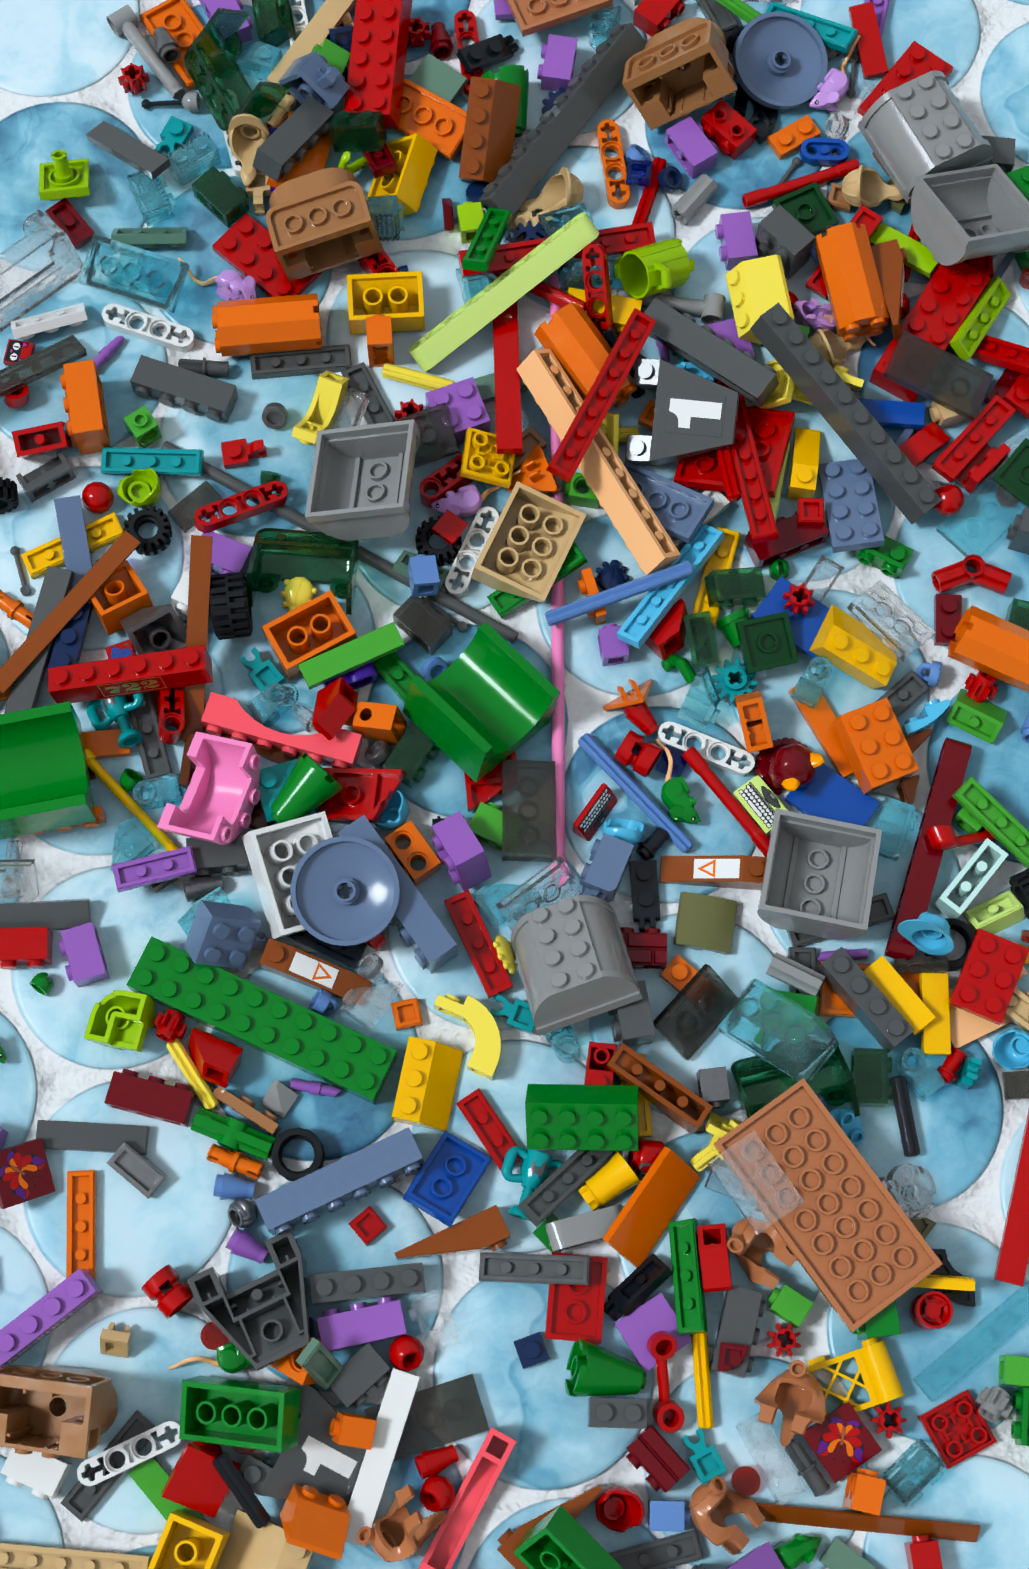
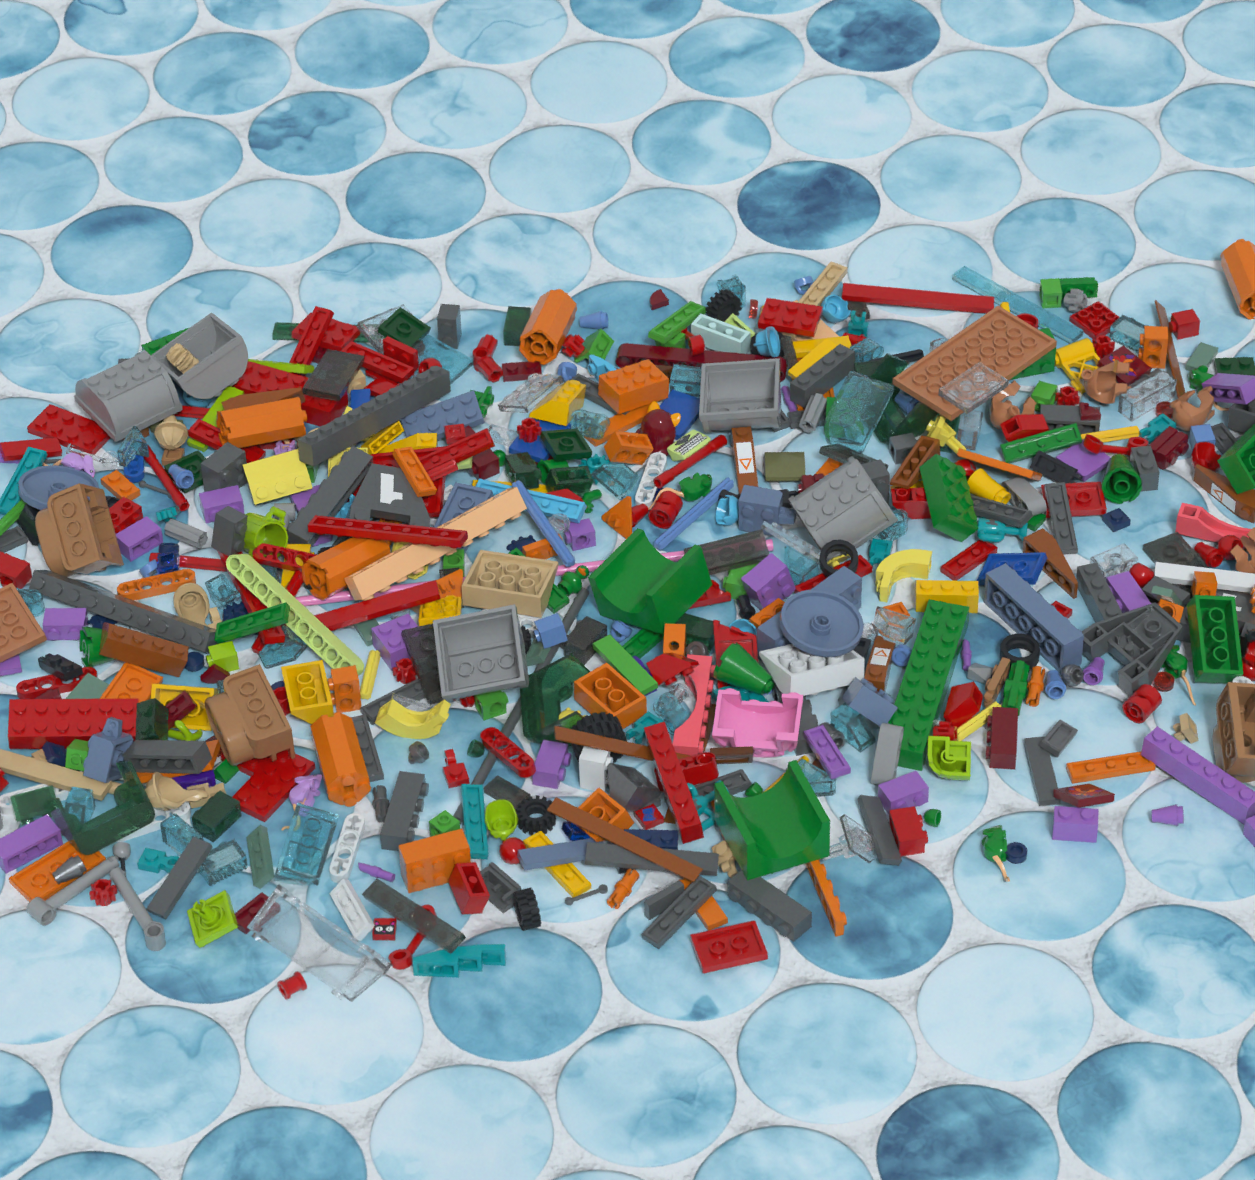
camera: 95 degrees left, 30 degrees down
(95, 111) = (153, 930): none -> light grey piece
(132, 940) = (887, 753): none -> light grey beam
(160, 791) = (759, 770): clear light blue piece -> none
(471, 939) = (838, 545): none -> black tyre
(527, 623) = (571, 581): none -> green animal
(594, 813) = (712, 531): slope -> none
(618, 613) = (559, 522): none -> clear tile
(645, 224) = (229, 531): none -> dark grey brick
(725, 445) = (414, 471): none -> orange tile
(728, 178) = (168, 513): none -> teal plate
(783, 193) = (181, 476): none -> medium blue cone
(819, 425) = (383, 438): none -> yellow piece
(849, 144) = (132, 445): none -> clear light blue slope
(977, 196) = (181, 358): none -> tan gear

